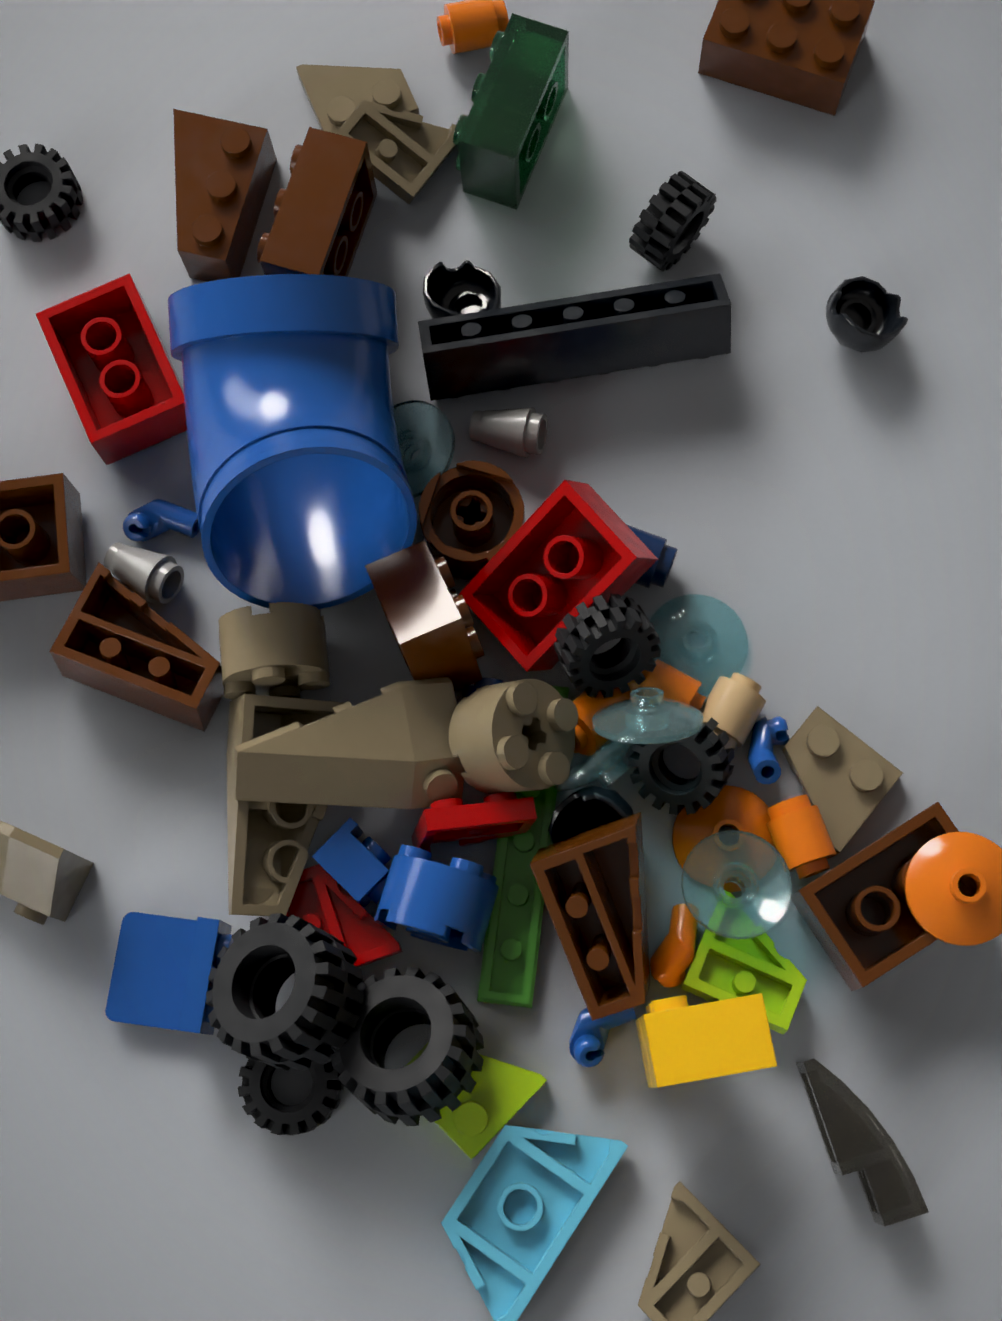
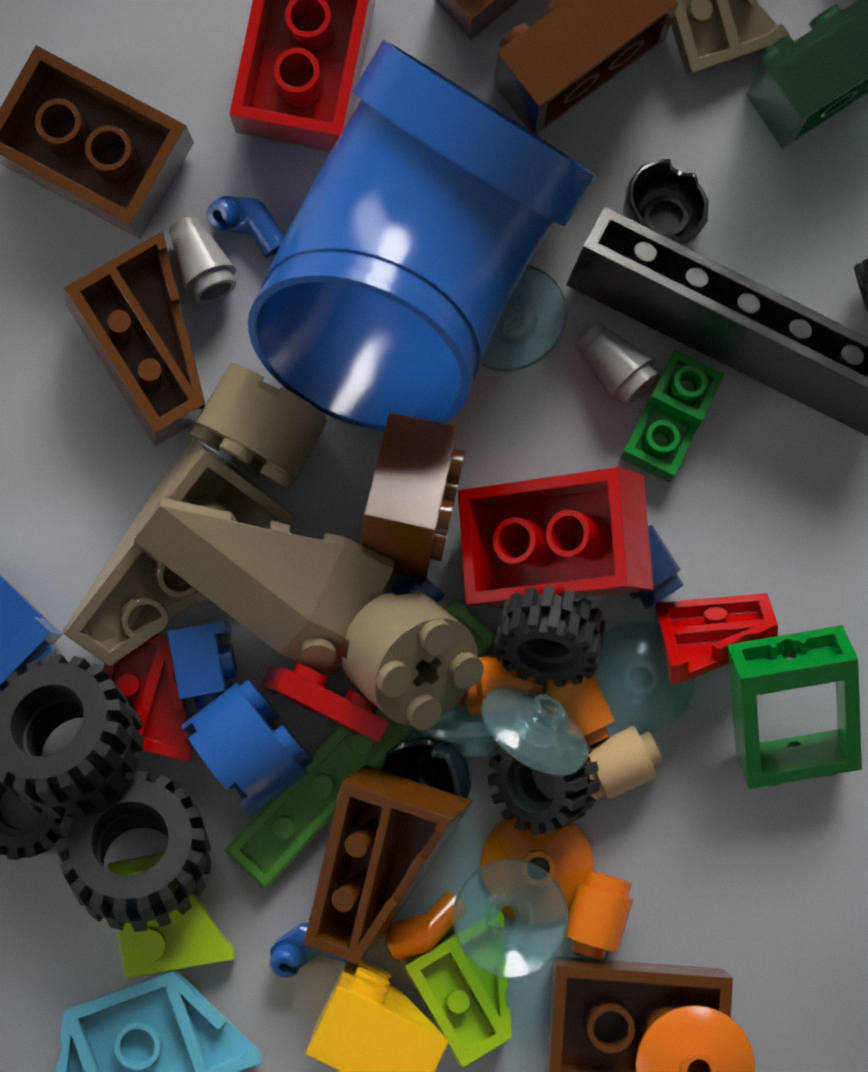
camera: 30 degrees right, 10 degrees up
(457, 497) = (524, 396): reddish brown brick -> none
(578, 436) = (672, 416): none -> green slope
(725, 566) = (698, 631): none -> red wing
(761, 754) = (622, 814): blue arm -> none
(794, 543) = (761, 669): none -> green window
(838, 774) = (673, 883): dark tan wing -> none

